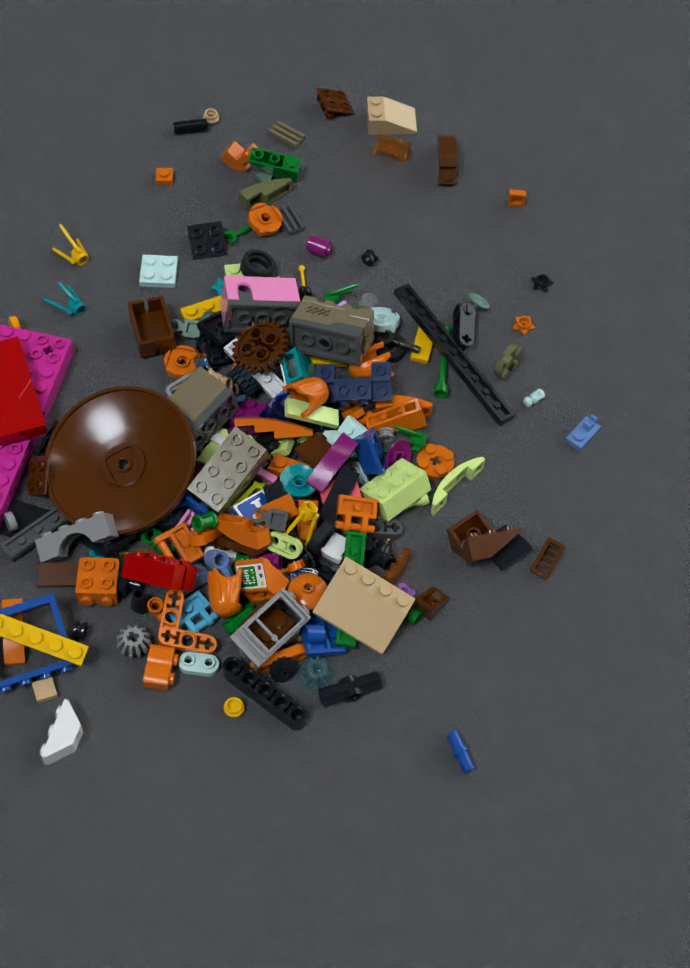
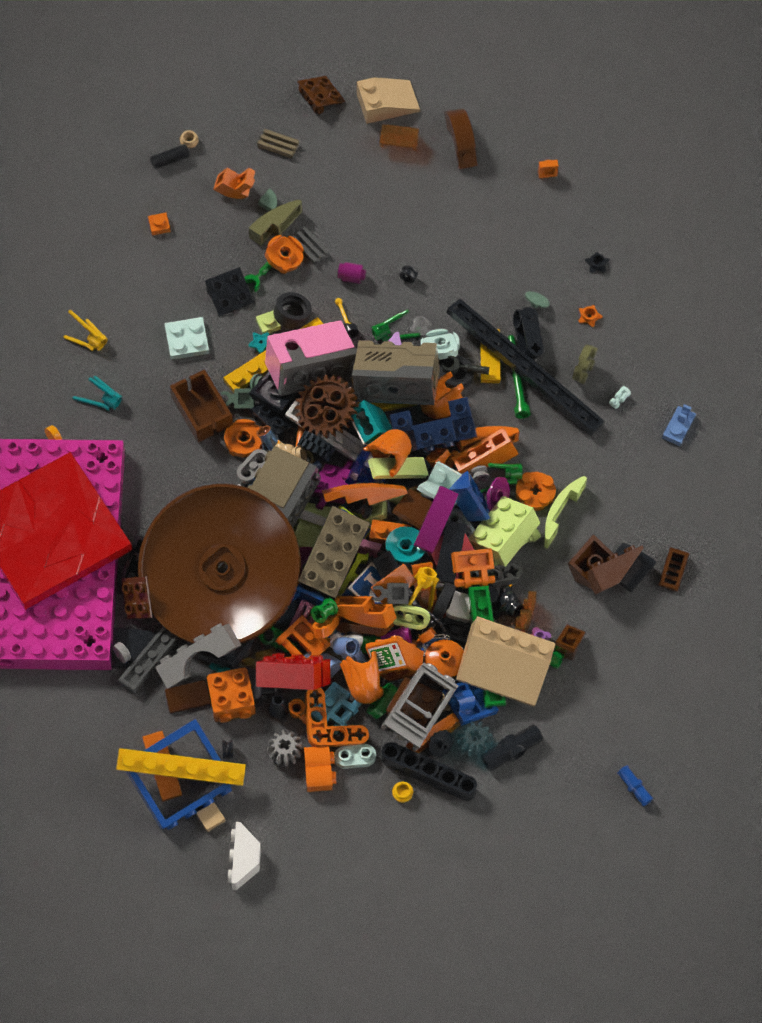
camera: 10 degrees left, 5 degrees up
(275, 163) = (279, 185): green slope -> none

